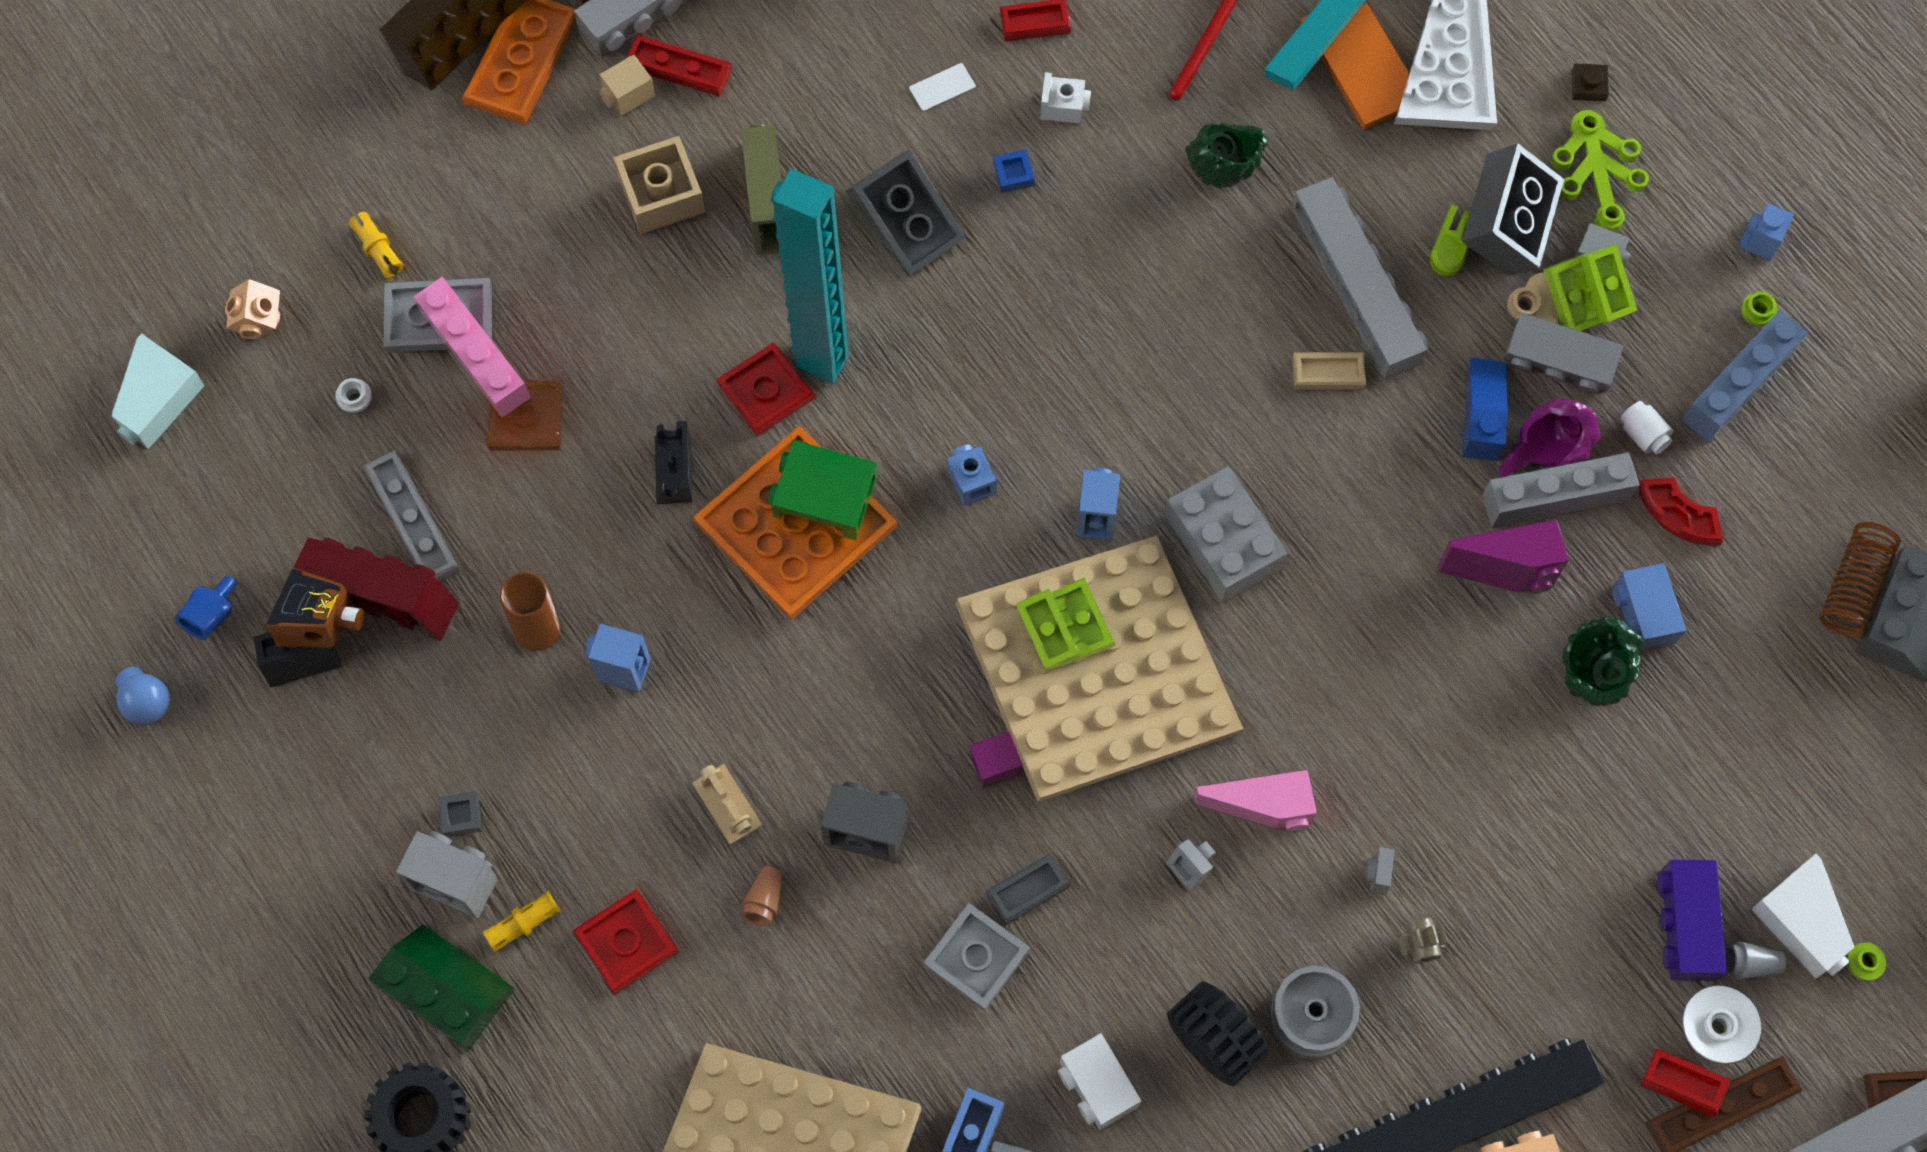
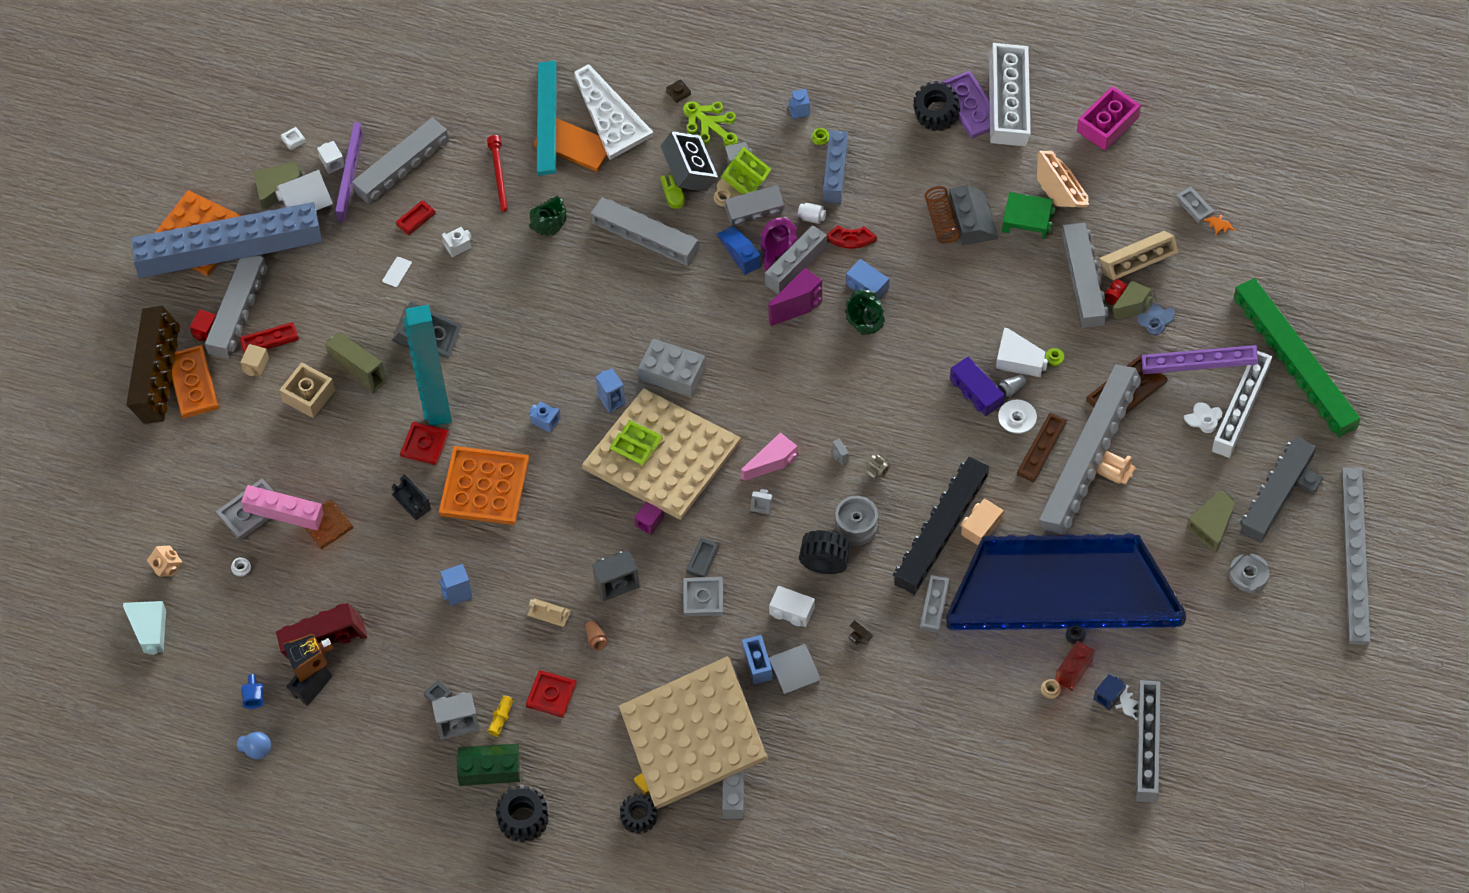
camera: 35 degrees left, 10 degrees down
(376, 245) = (195, 500): yellow pin -> none
(410, 515) = (305, 595): light grey tile -> none
(525, 593) = (407, 588): dark orange piece -> none
(824, 487) = (487, 459): green panel -> none
(1013, 171) = (459, 284): blue plate -> none
(1329, 371) = (662, 277): tan tile -> none
(1685, 1082) = (1020, 447): red tile -> none

